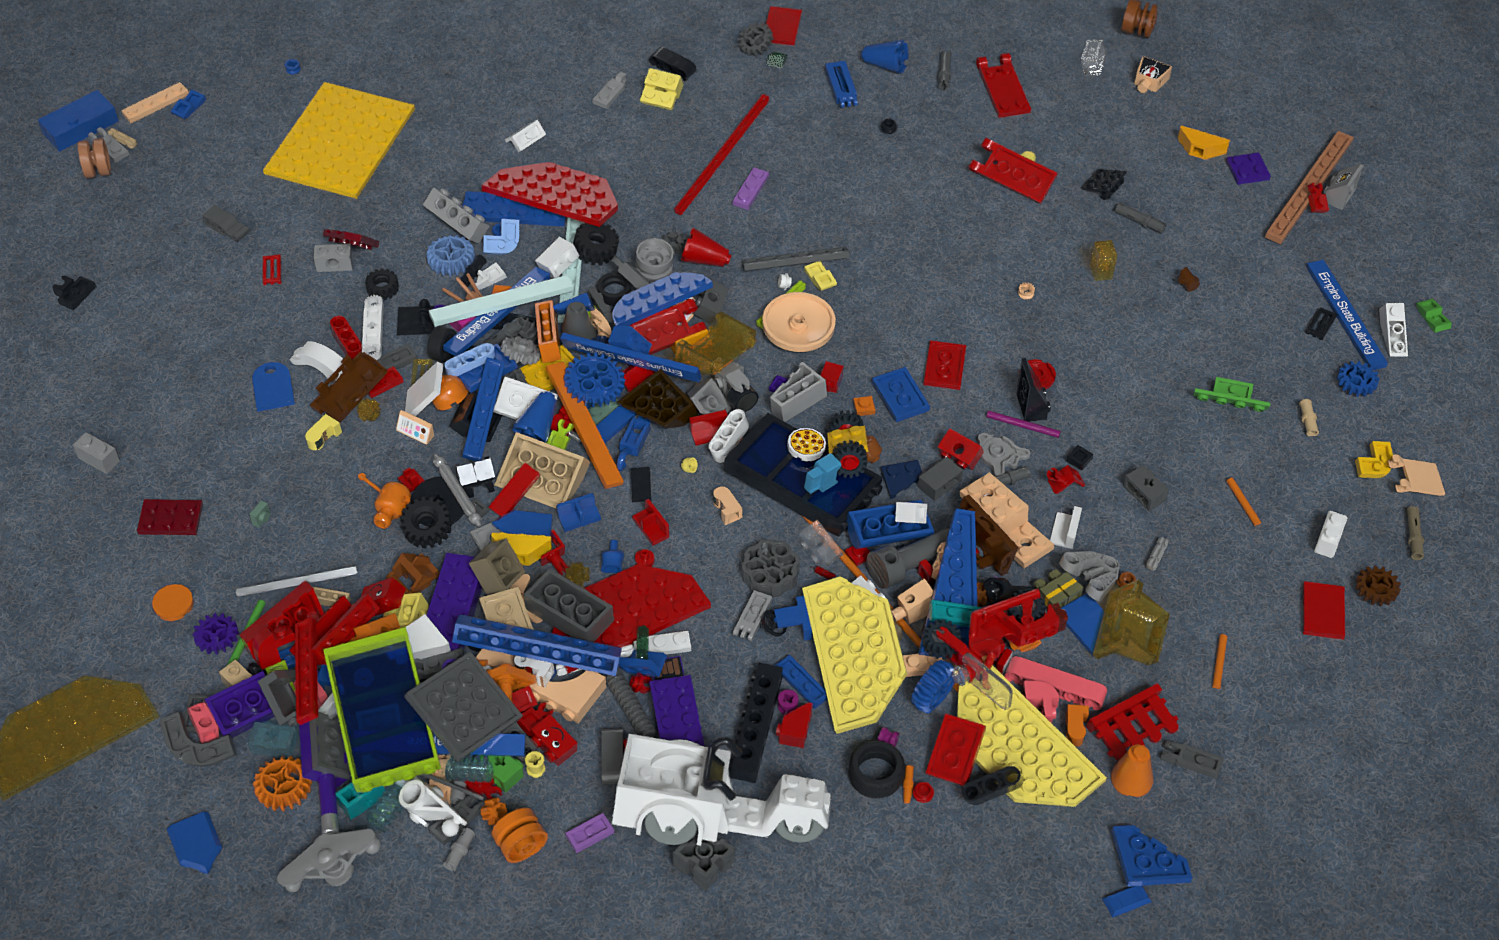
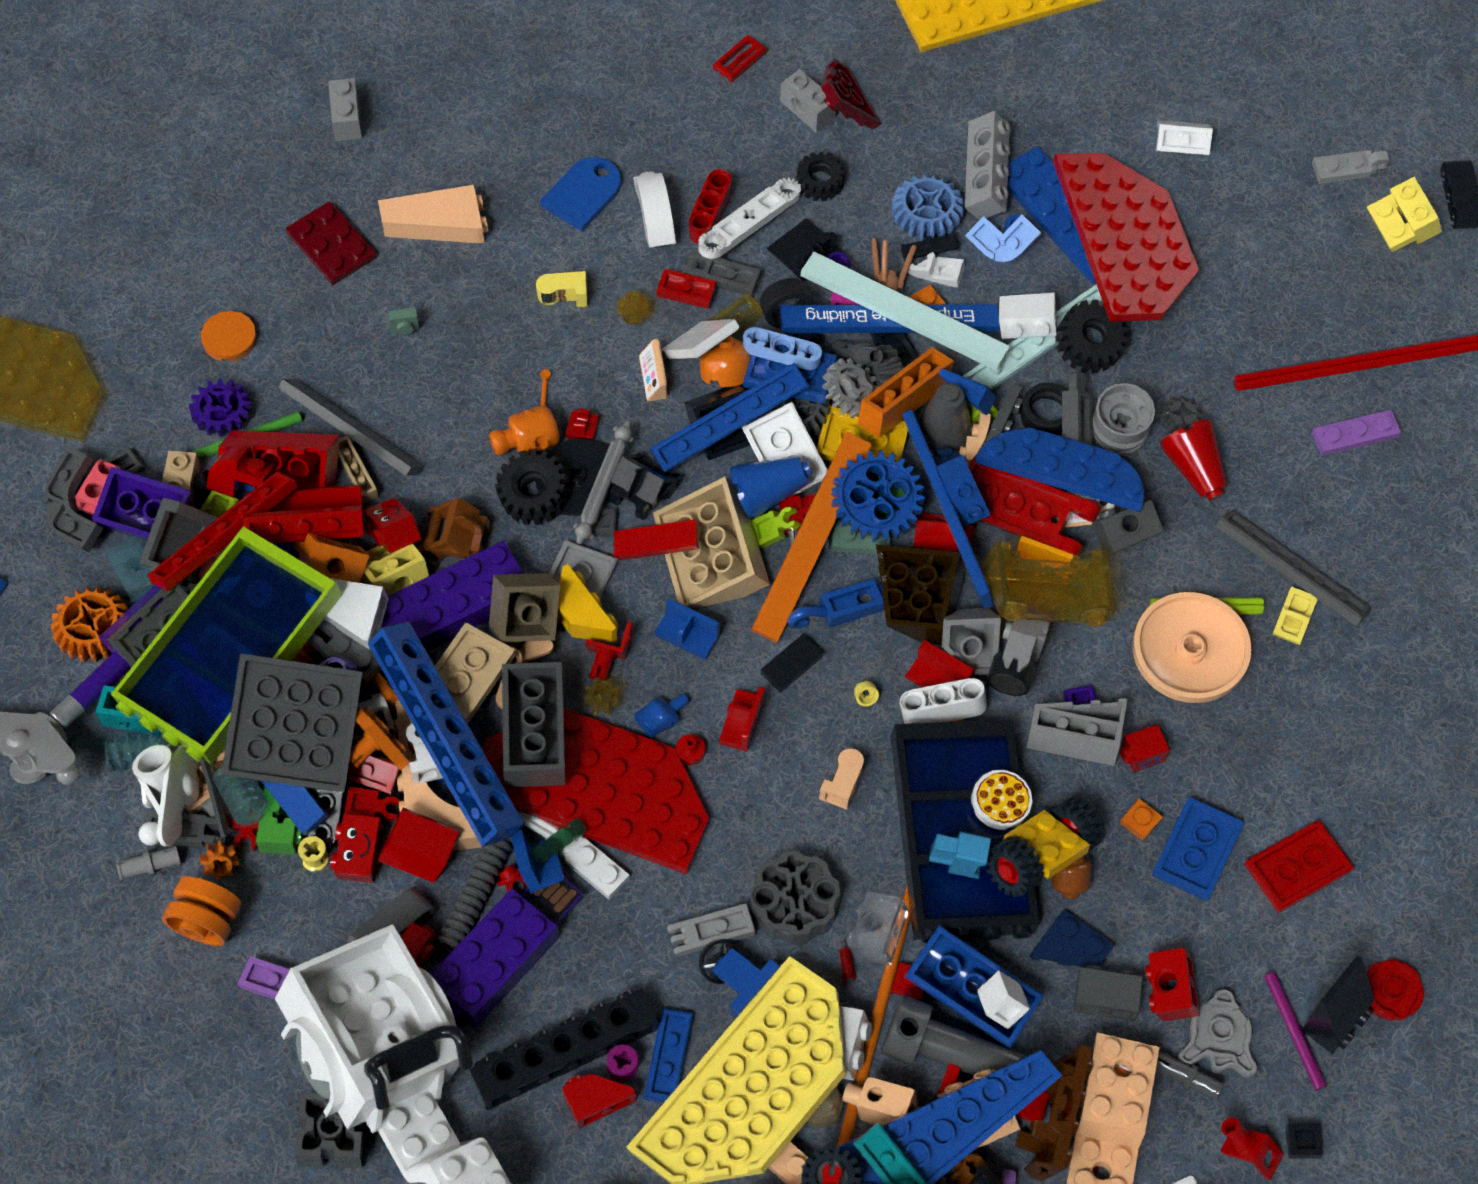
camera: 50 degrees right, 10 degrees up
(212, 457) = (435, 216): none -> light nougat slope
(350, 388) = (641, 266): reddish brown piece -> none
(524, 523) = (622, 589): blue tile -> none
(583, 707) = (418, 845): none -> red slope
(614, 423) = (846, 565): blue tile -> none
(784, 281) = (1245, 582): white plate -> none

